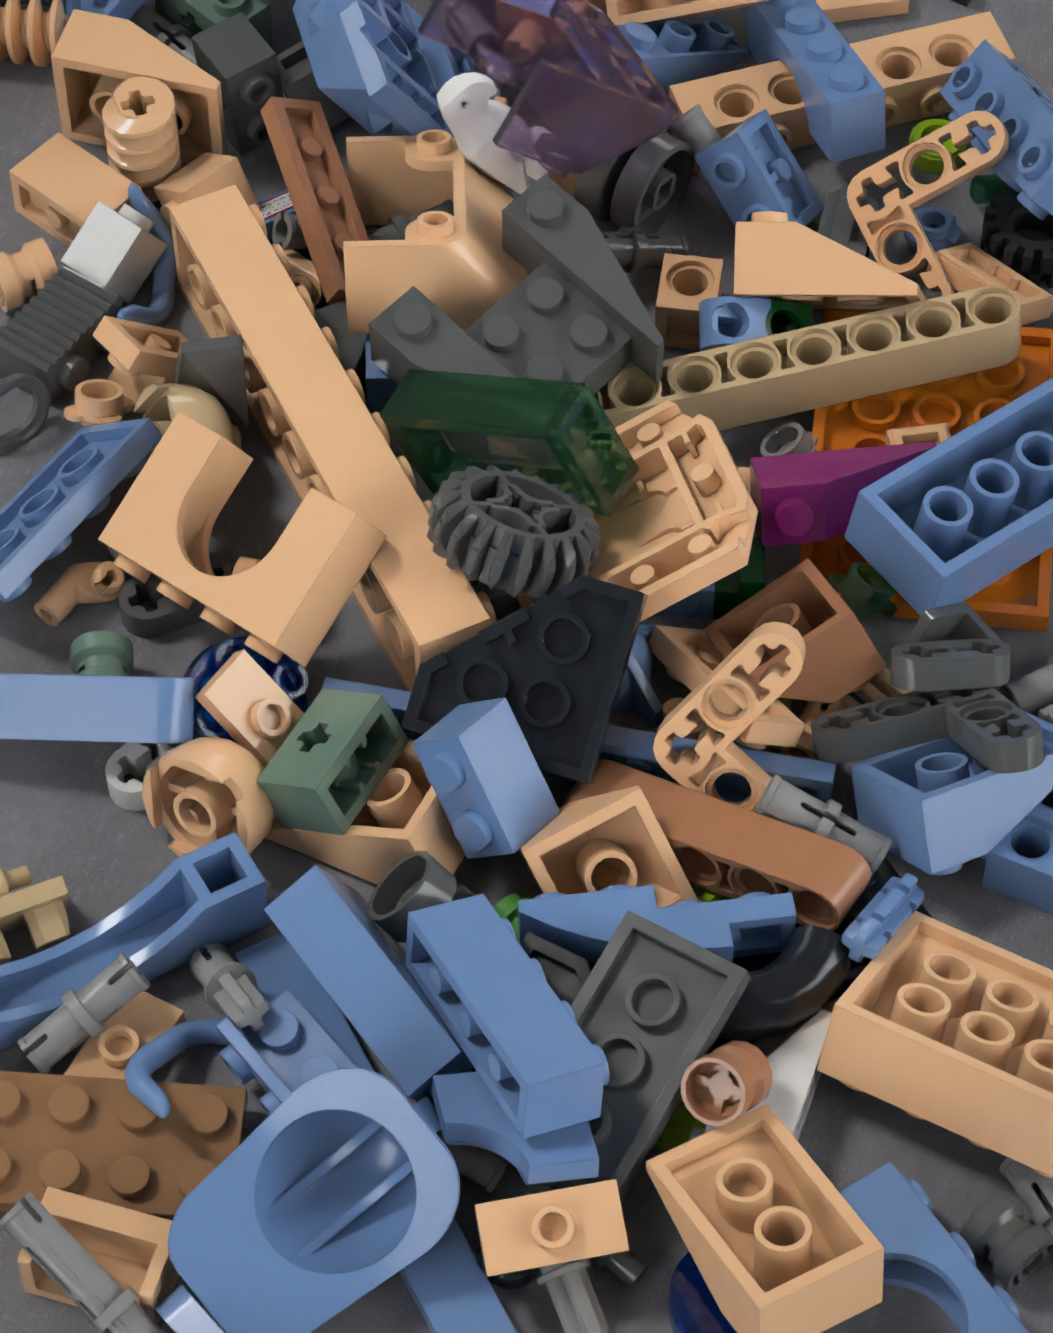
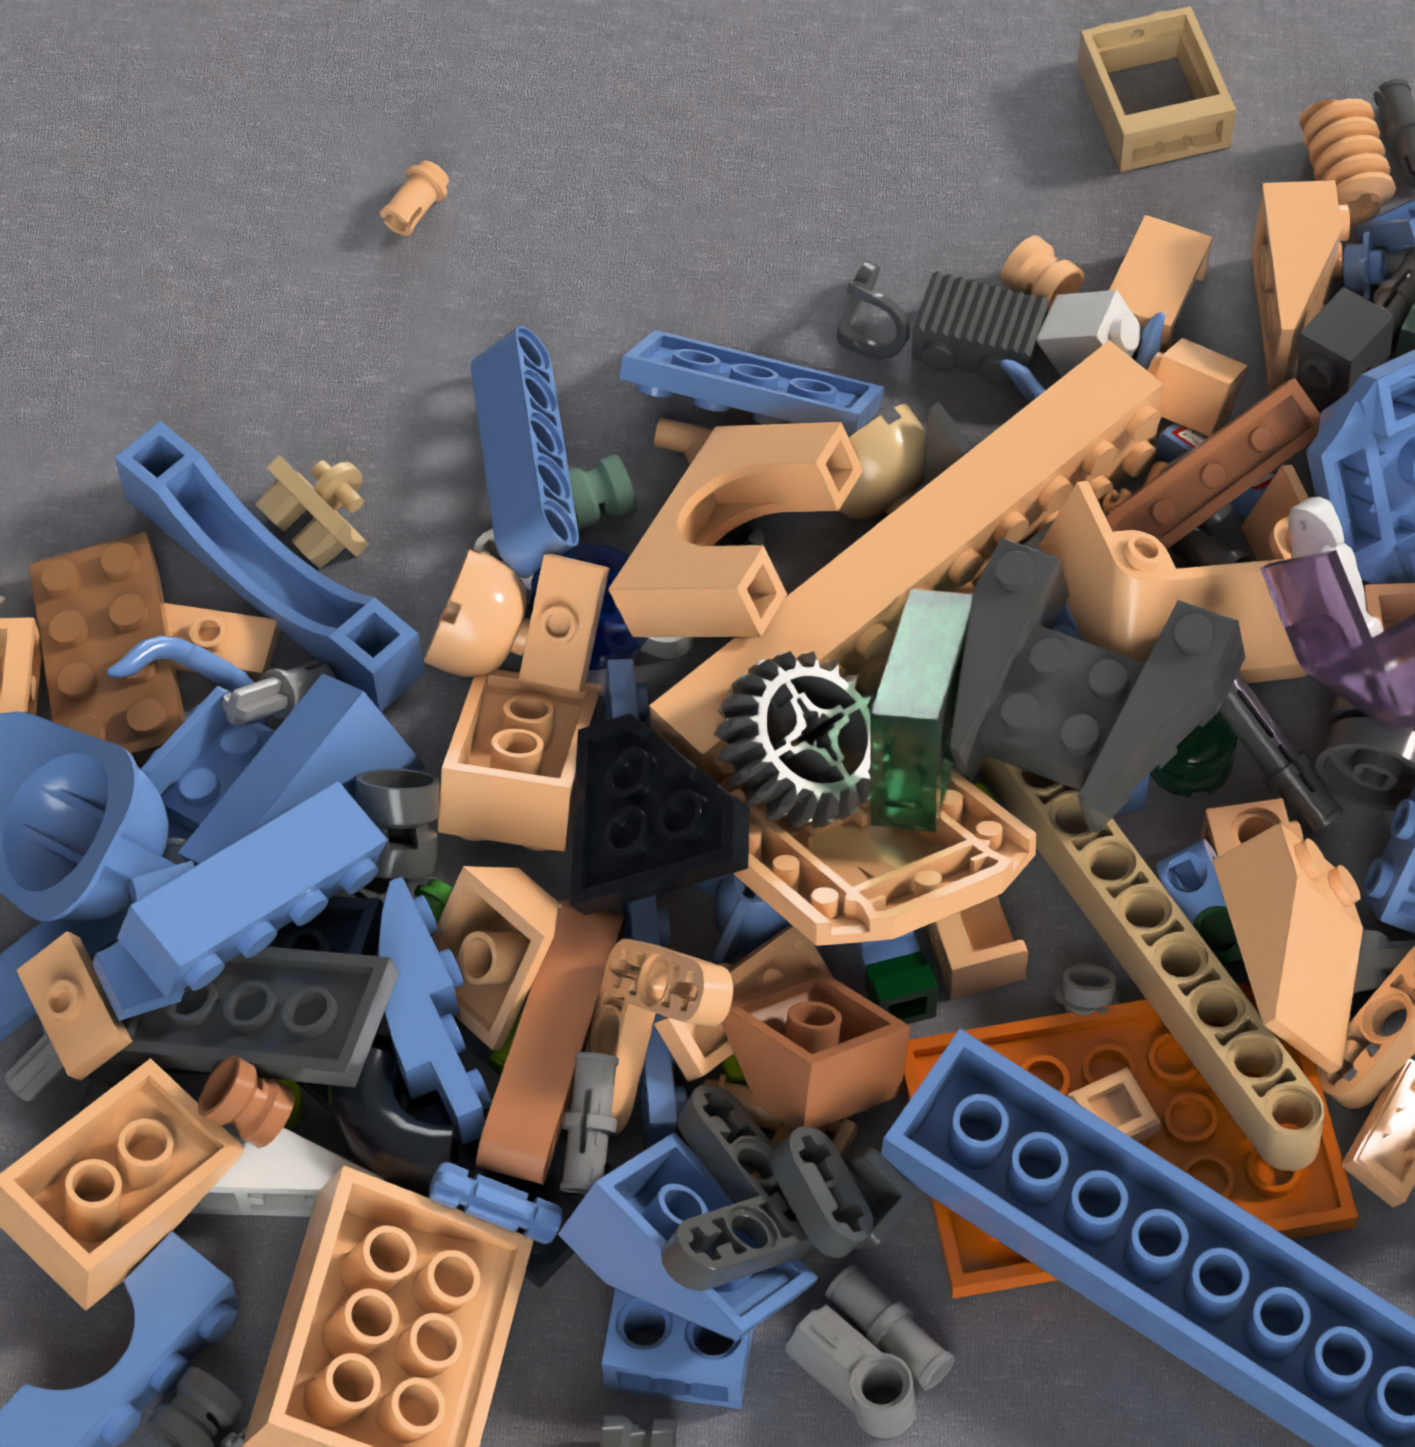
camera: 75 degrees right, 5 degrees up
(83, 1013) = (222, 592): light grey pin -> none
(98, 403) = (912, 385): light nougat plate -> none
(139, 353) = (972, 392): light nougat slope -> none
(142, 132) = (1231, 303): light nougat piece -> none
(333, 761) = (527, 688): sand green brick -> none
(486, 778) = (528, 809): medium blue brick -> none
(815, 492) = (998, 1001): magenta slope -> none
(864, 591) = (882, 1094): clear green plate -> none

